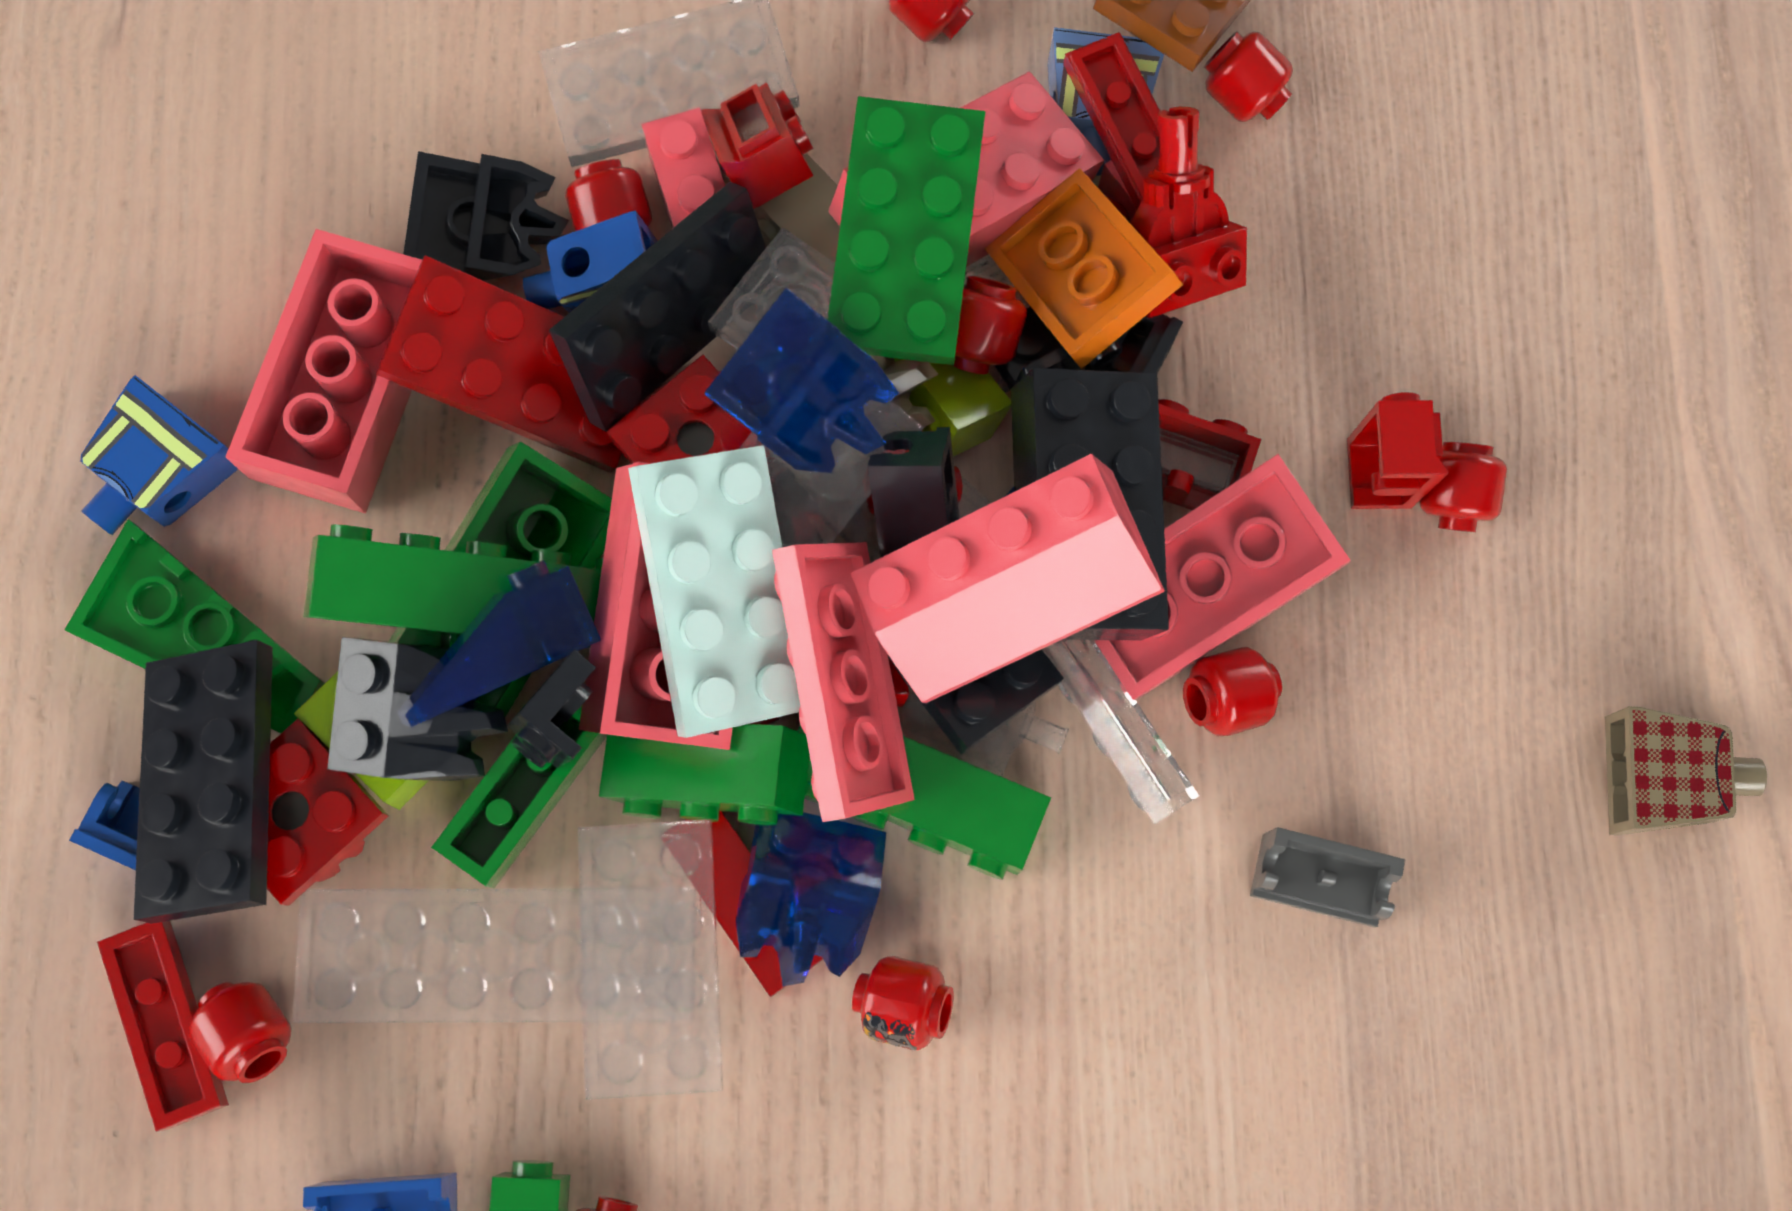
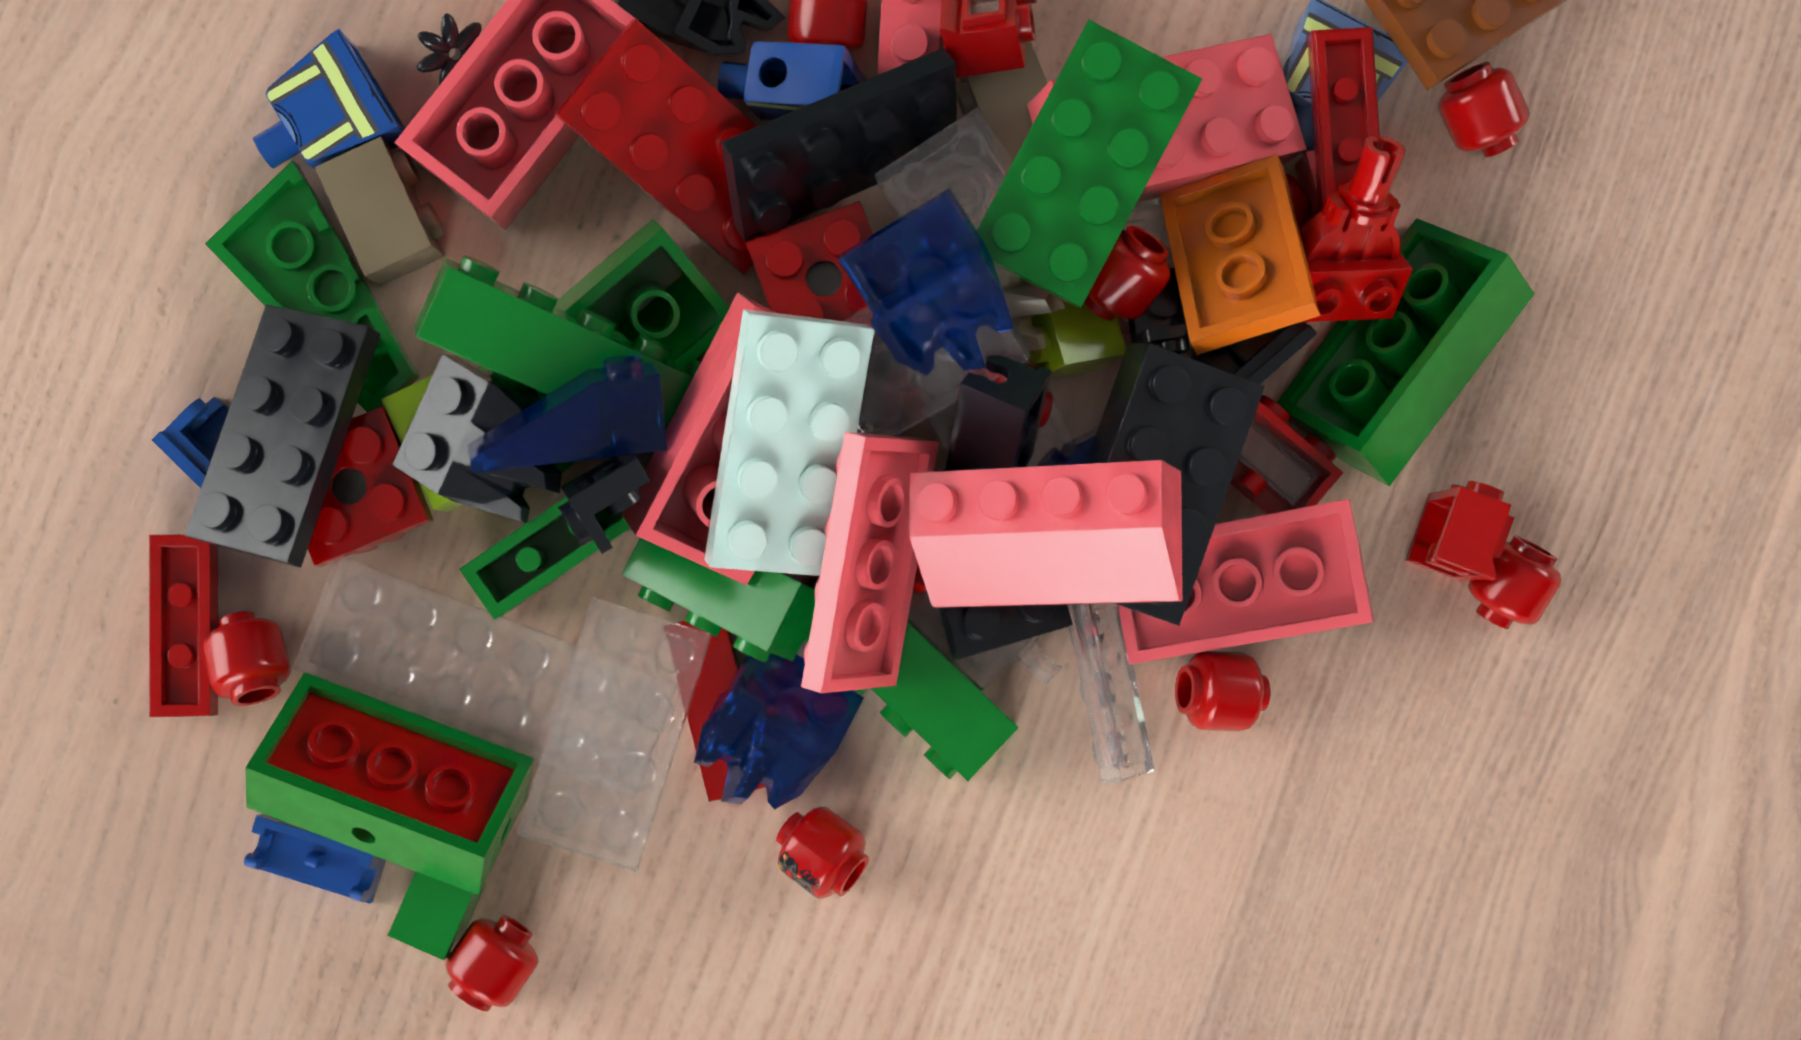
camera: 30 degrees right, 10 degrees up
(233, 536) = (381, 210): none -> dark tan brick
(244, 359) = (442, 45): none -> black plant
(431, 1099) = (388, 782): none -> brick
(1268, 345) = (1388, 382): none -> green slope
(1325, 877) = (1236, 886): dark grey hinge -> none
(1673, 771) = (1590, 915): dark tan torso -> none

